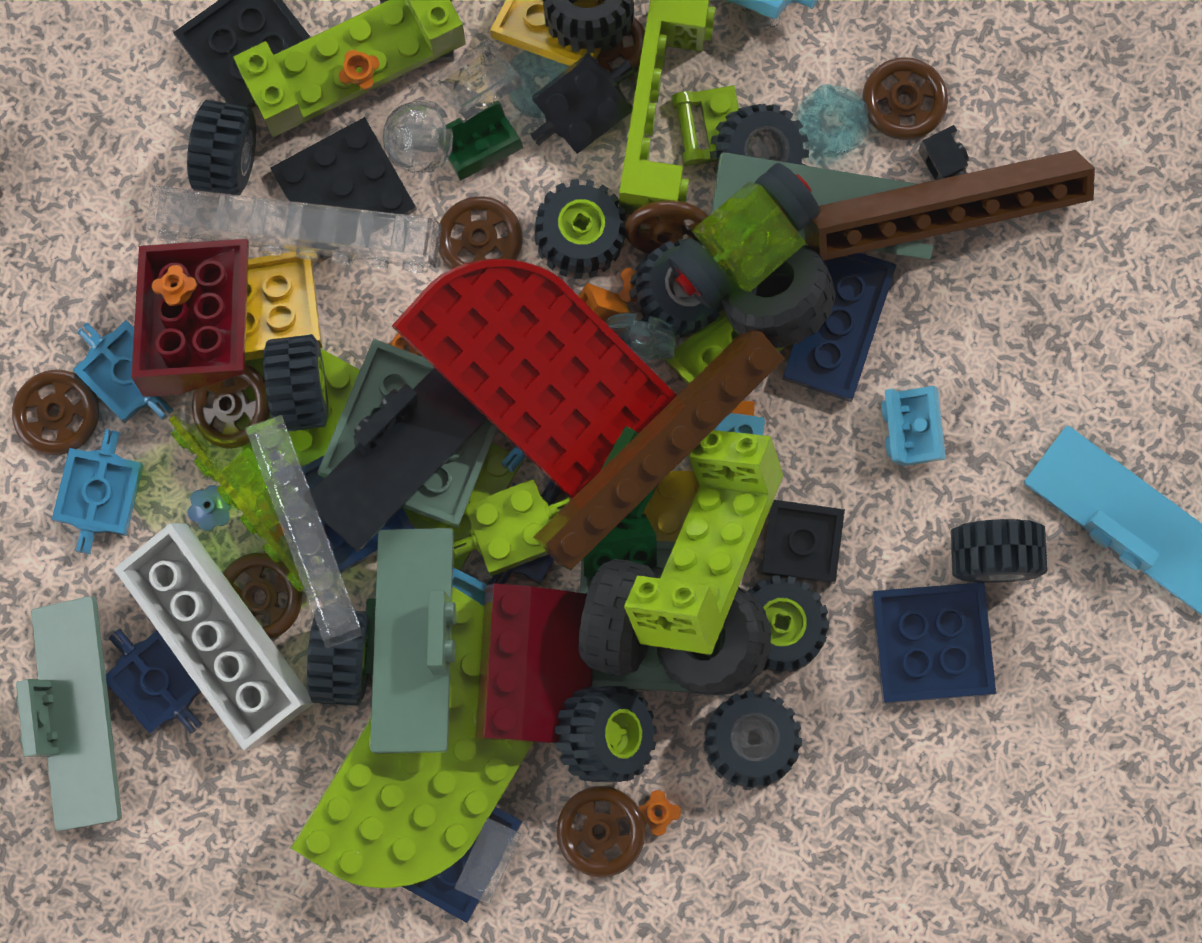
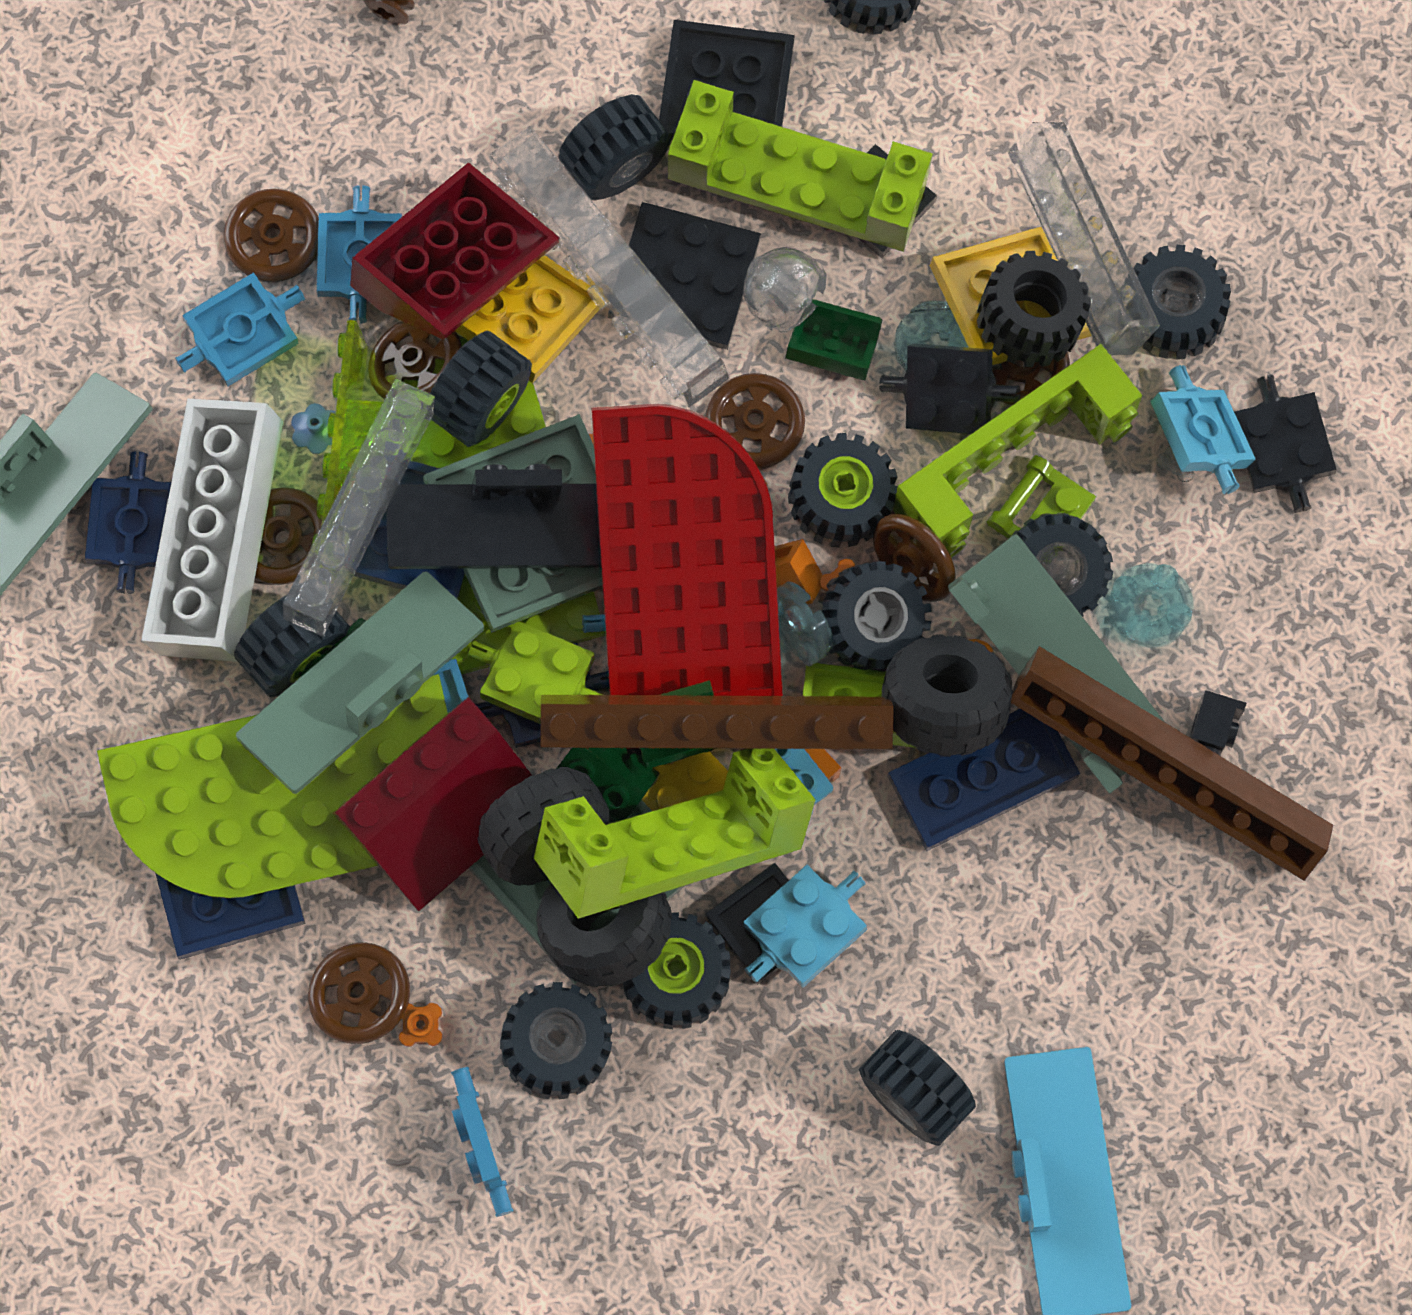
camera: 40 degrees right, 5 degrees down
(179, 293) = (460, 228): orange plate -> none
(359, 59) = (793, 176): orange plate -> none
(476, 80) = (881, 288): clear tile -> none
(488, 861) = (243, 922): clear plate -> none
(606, 734) = (440, 913): black wheel -> none
(746, 236) = (961, 617): brick -> none
(785, 858) = (481, 1159): none -> dark azure plate
(830, 520) = (804, 926): none -> medium azure plate
(914, 426) = (956, 919): medium azure bracket -> none
(924, 120) = (1253, 619): reddish brown plate -> none
(933, 642) = (789, 1113): dark blue plate -> none

